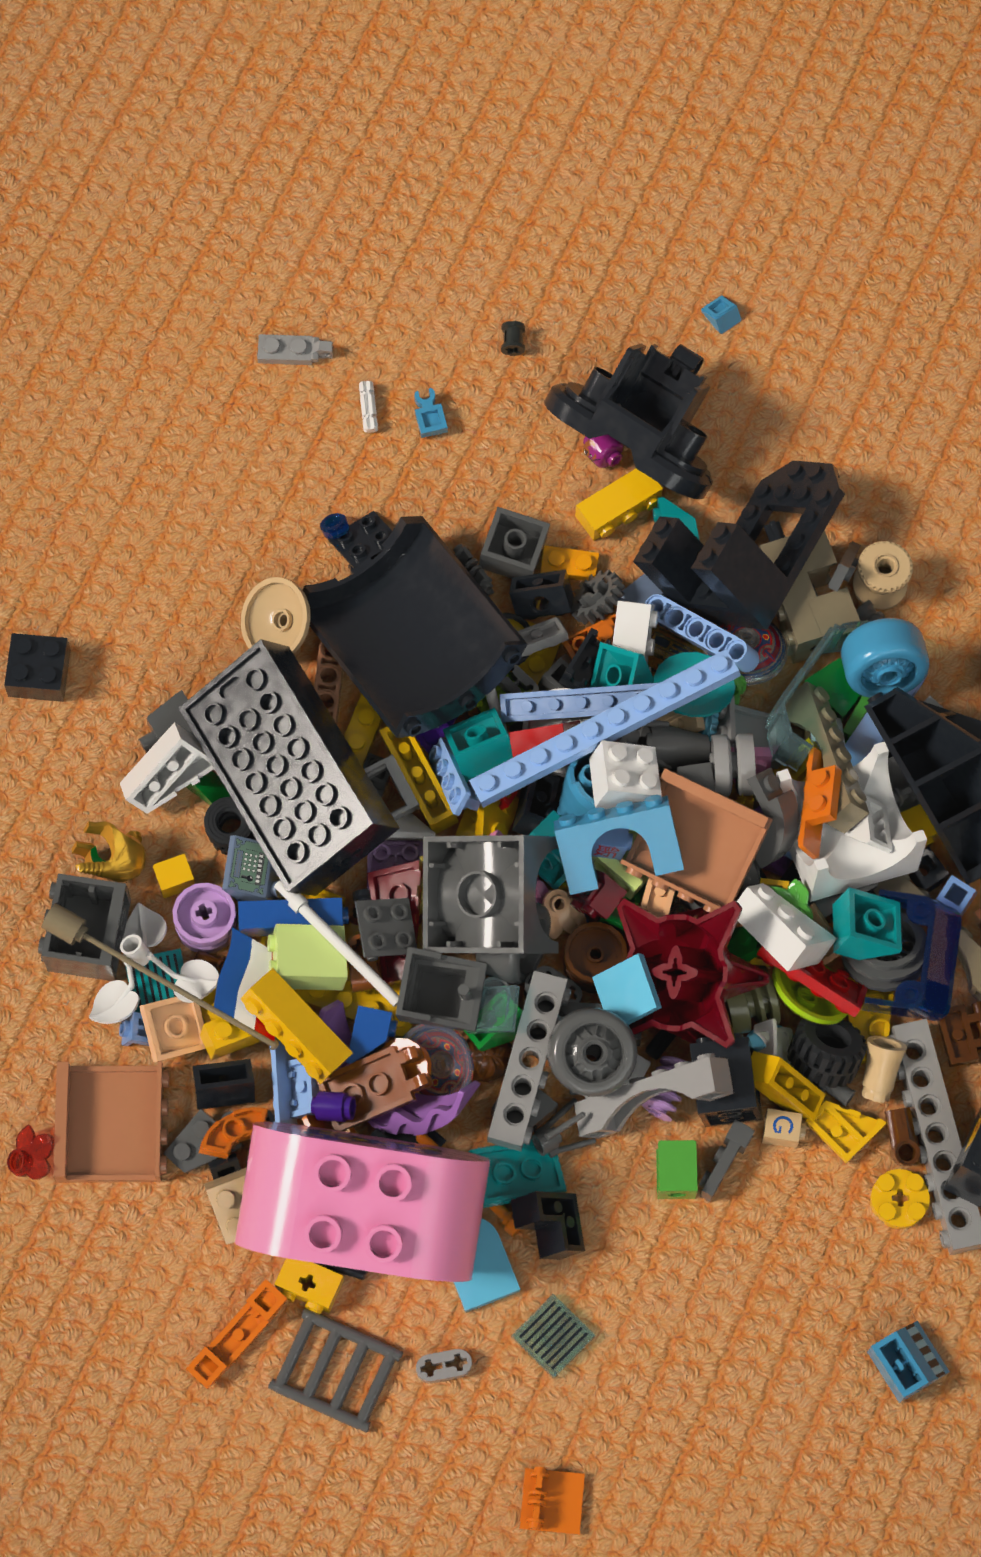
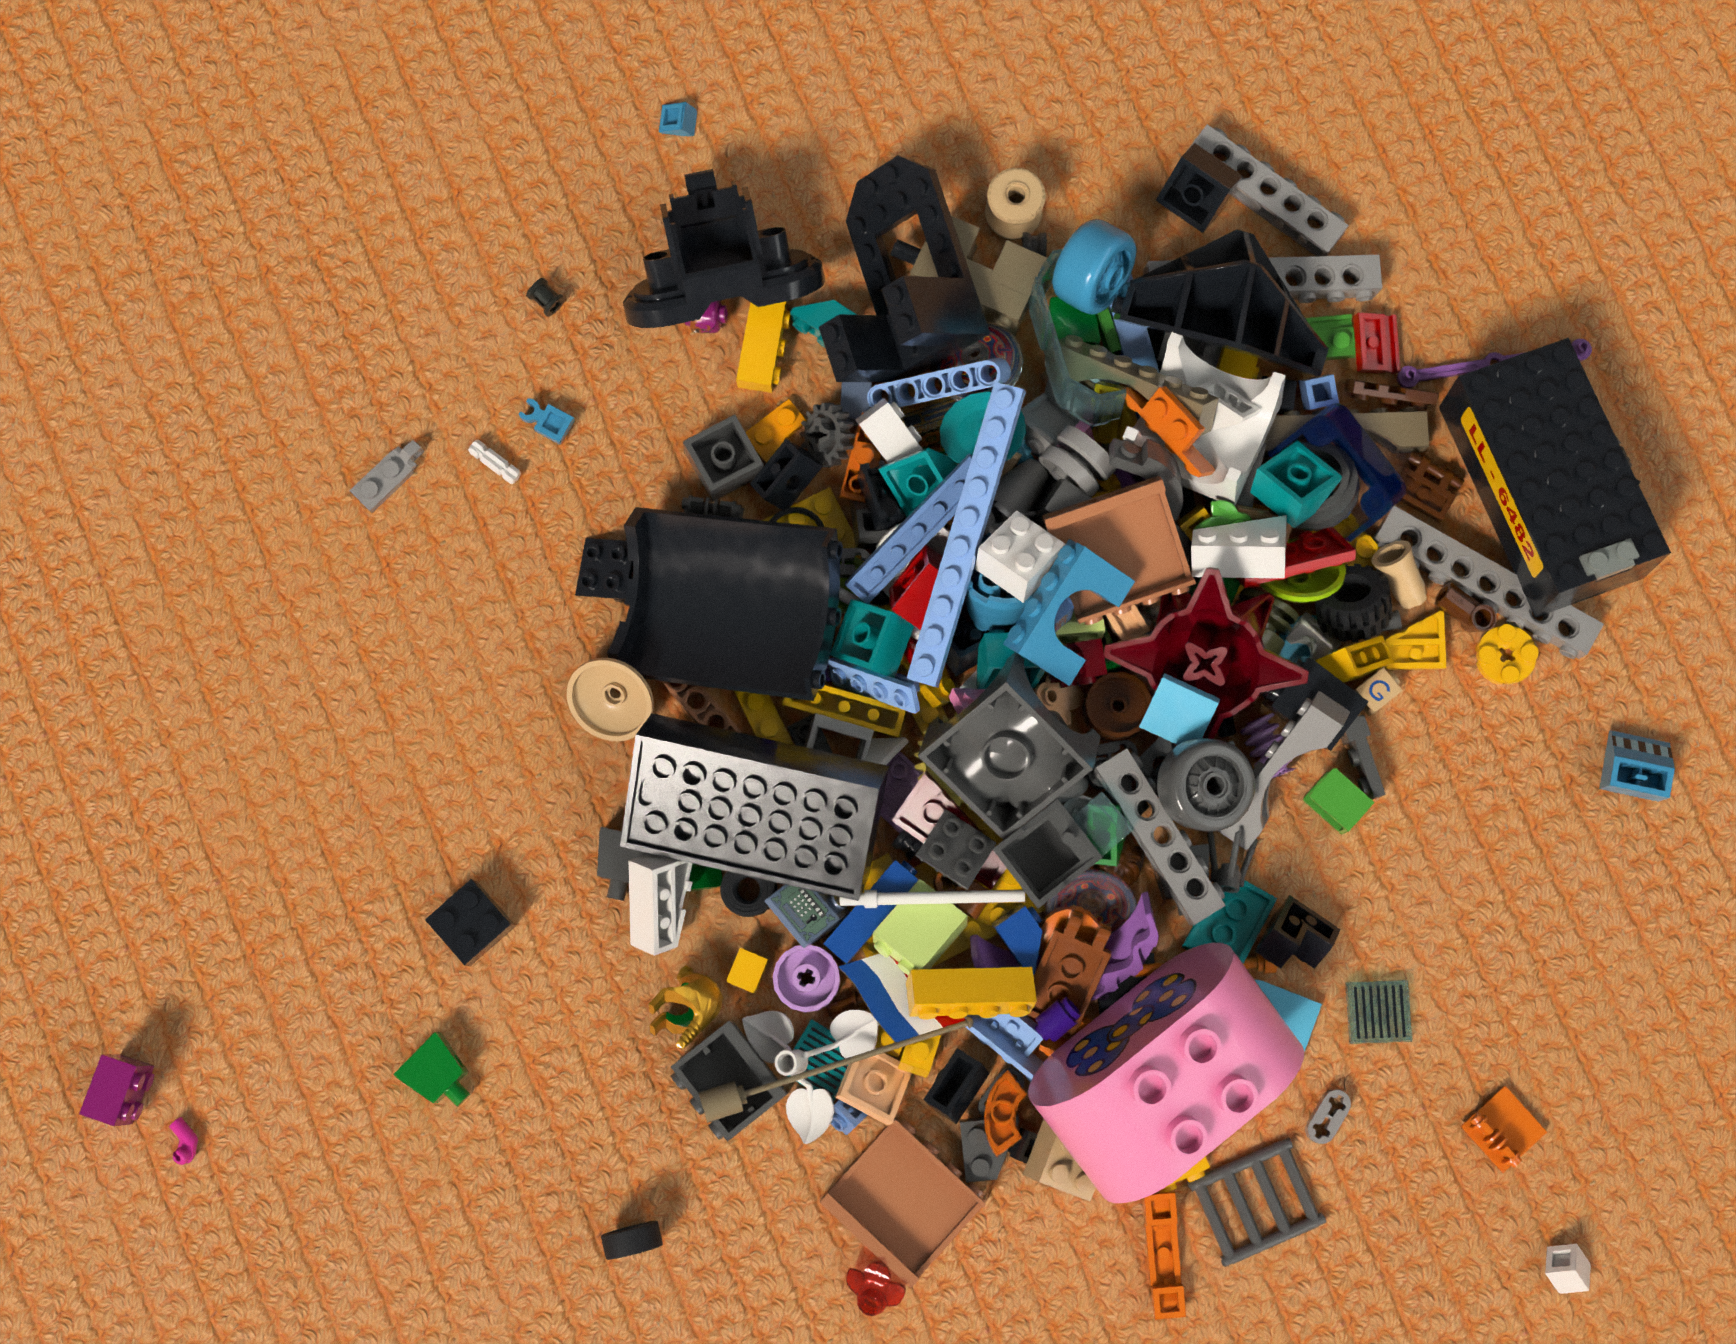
camera: 45 degrees left, 10 degrees up
(334, 526) = (571, 580): clear blue tile -> none
(543, 635) = (823, 504): light grey hinge -> none
(846, 567) = (990, 227): dark grey plate -> none

